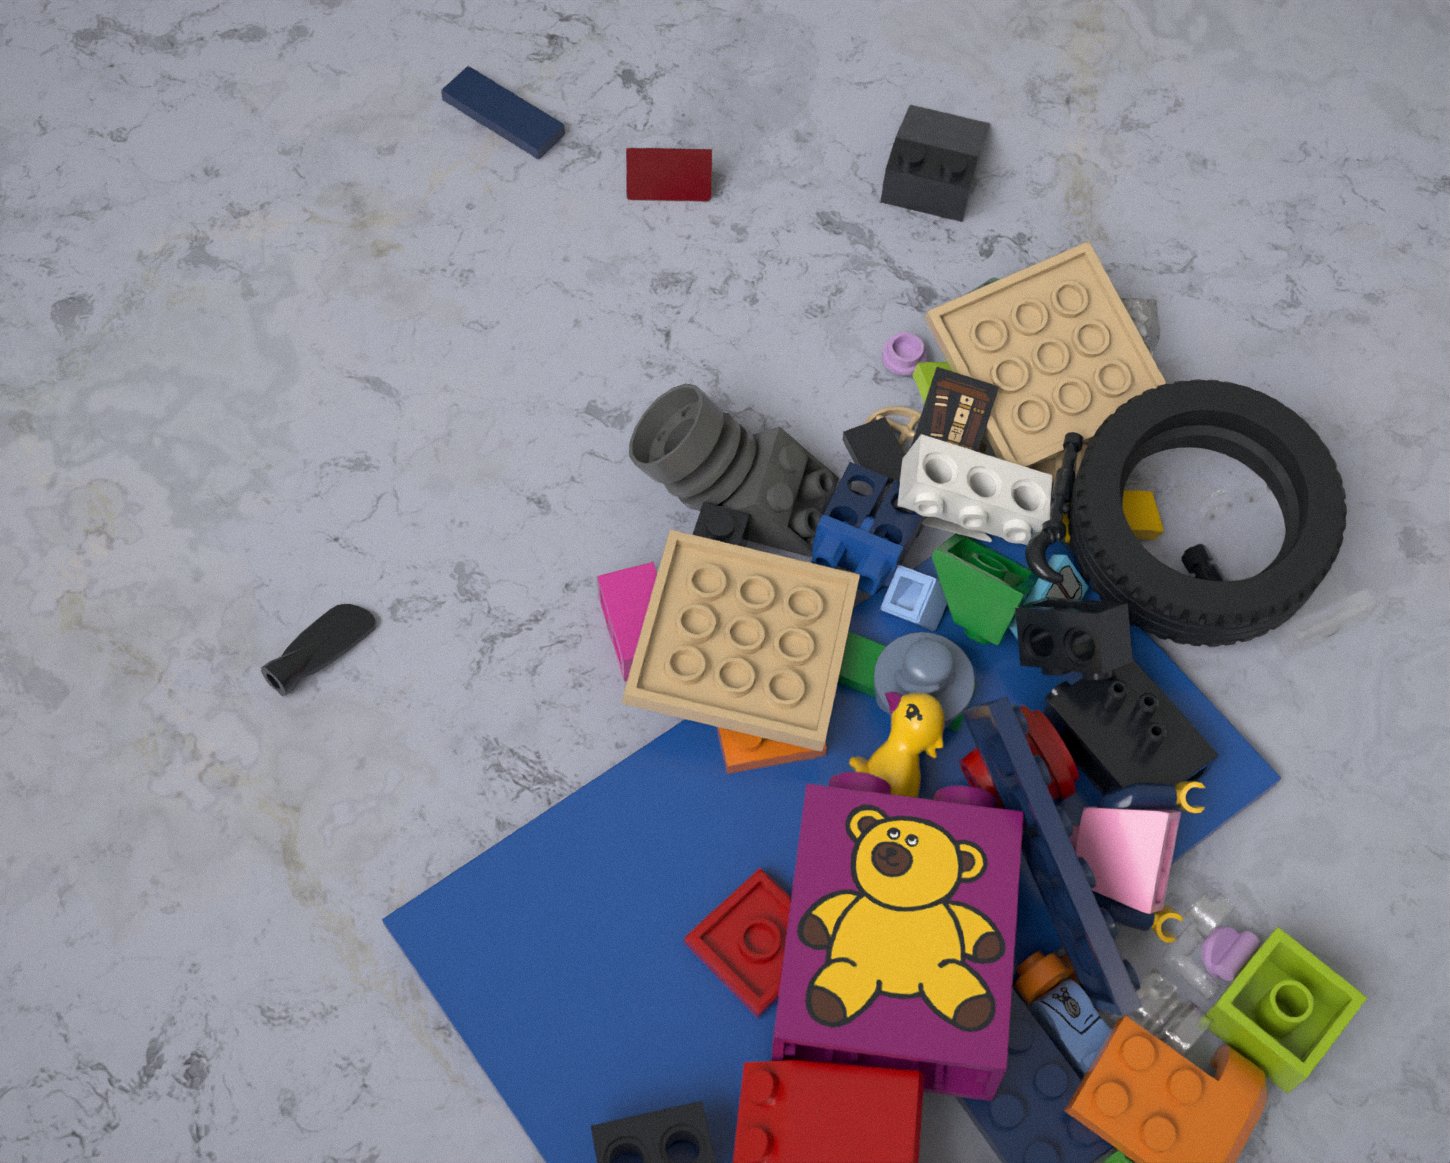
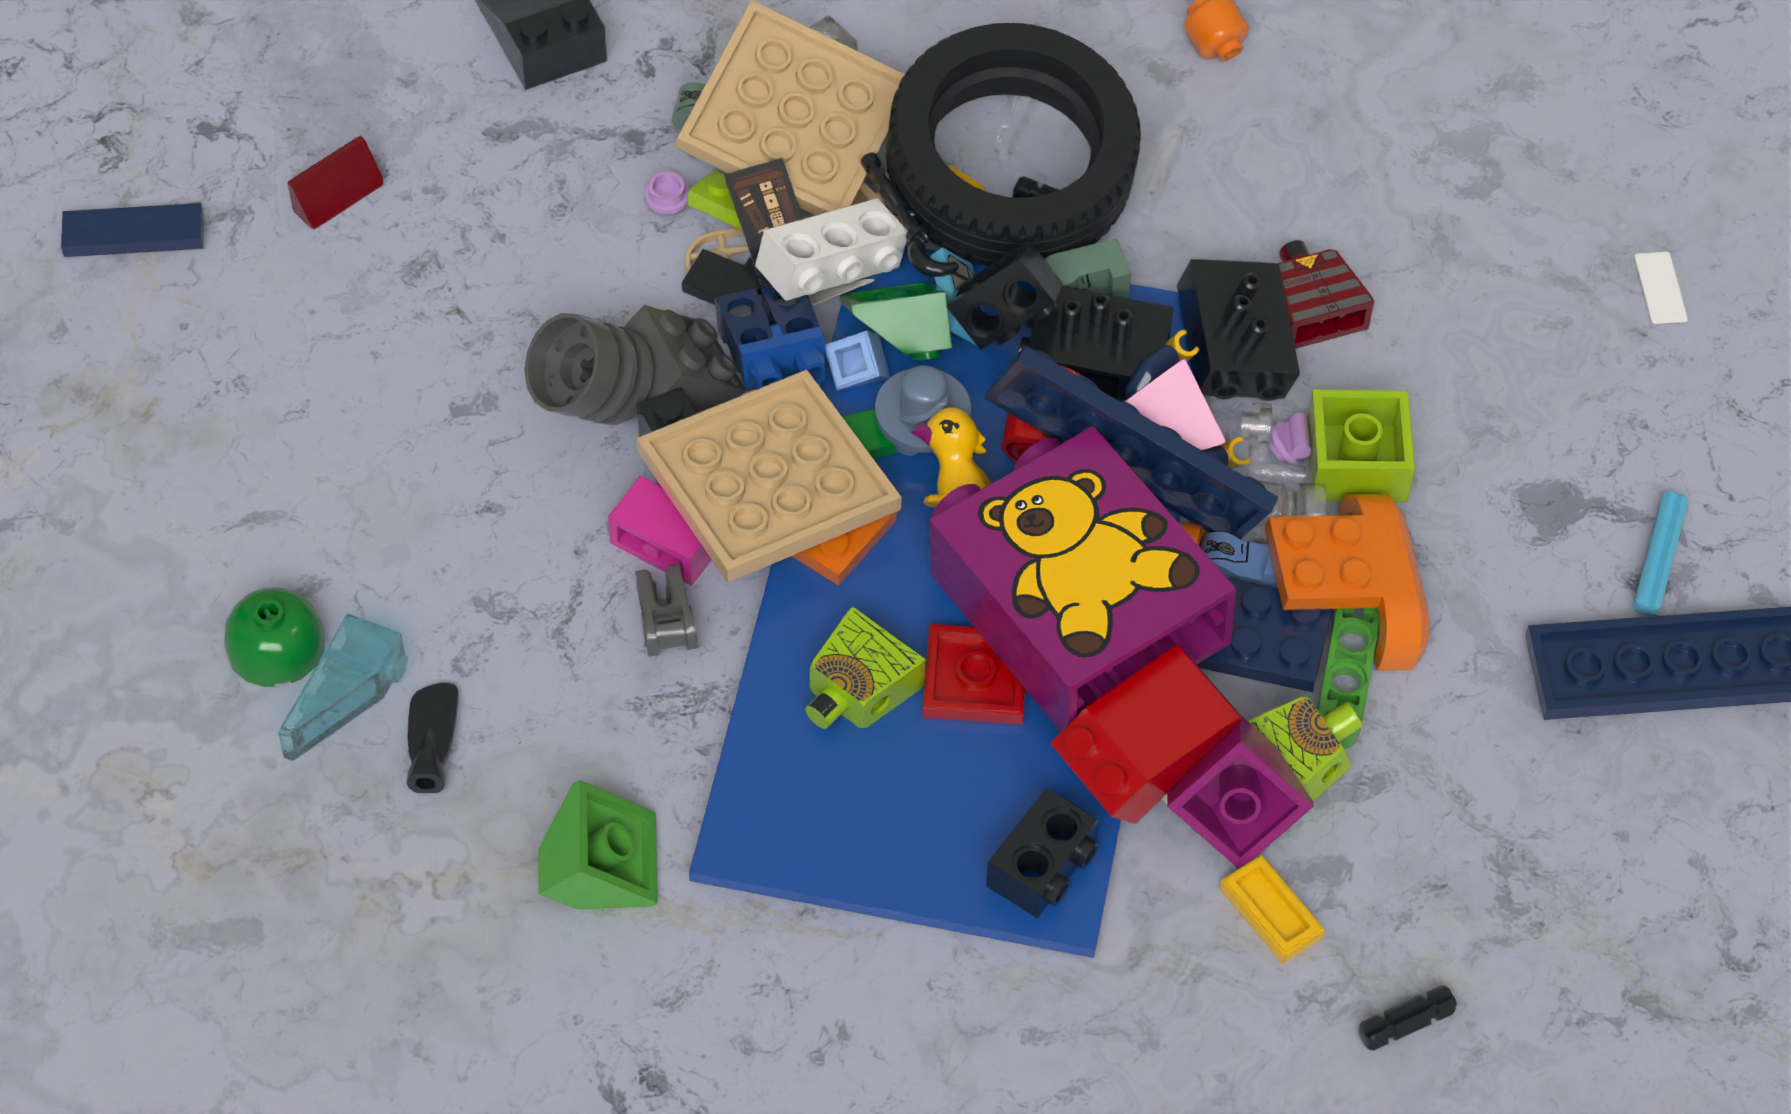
camera: 40 degrees left, 5 degrees down
(288, 481) = (273, 637): none -> green cylinder
(296, 555) = (345, 683): none -> clear light blue slope
(333, 845) = (599, 852): none -> bright green slope
(570, 702) = (669, 624): none -> dark grey piece
(661, 865) = (862, 673): none -> lime torso
(1177, 666) = (1094, 268): none -> sand green leg
(1266, 817) = (1241, 329): none -> black piece
(1370, 840) = (1322, 295): none -> dark red torso

